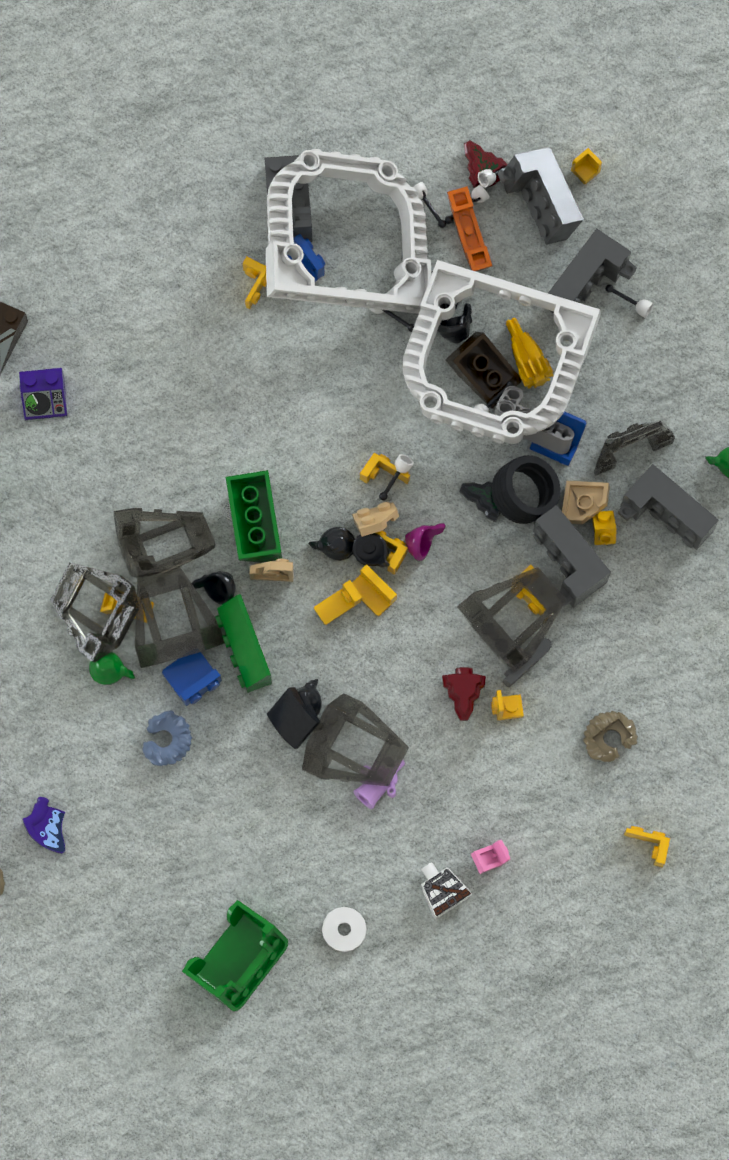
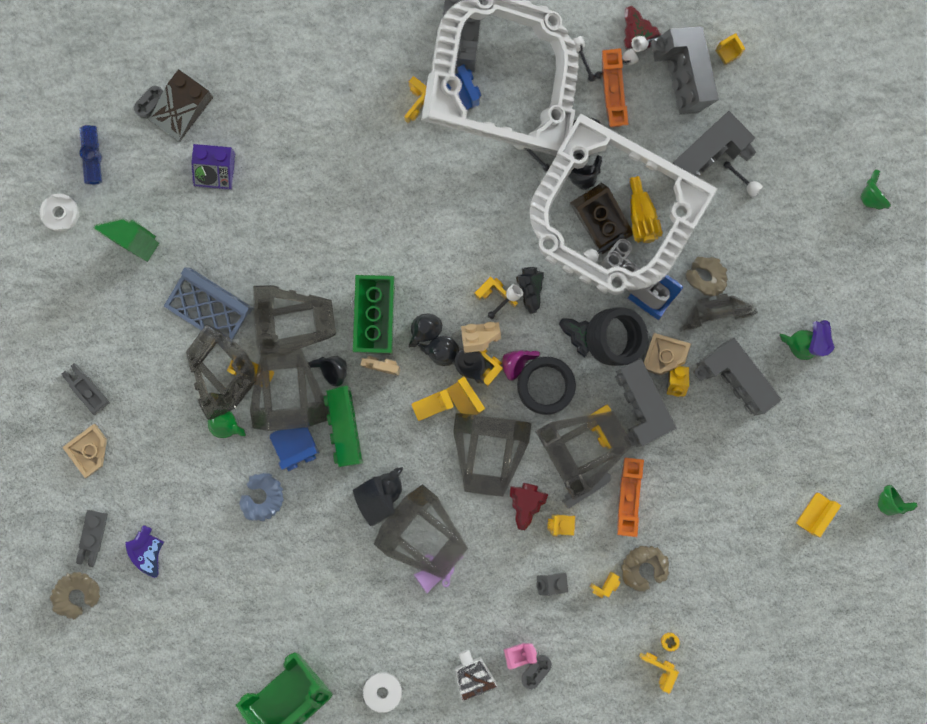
camera: 10 degrees right, 10 degrees up
(67, 526) = (212, 290): none -> sand blue fence
(312, 523) = (425, 328): none -> black hat
(410, 612) = (491, 427): none -> clear smoke windscreen
(421, 453) = (531, 284): none -> black rock
(471, 535) = (560, 366): none -> black tyre
(508, 871) = (540, 675): none -> dark grey beam
(510, 773) = (552, 584): none -> dark grey bracket
(575, 760) = (611, 584): none -> yellow bracket
(576, 661) = (629, 497): none -> orange slope
(624, 405) = (718, 276): none -> dark tan piece
(660, 807) = (673, 647): none -> yellow bush

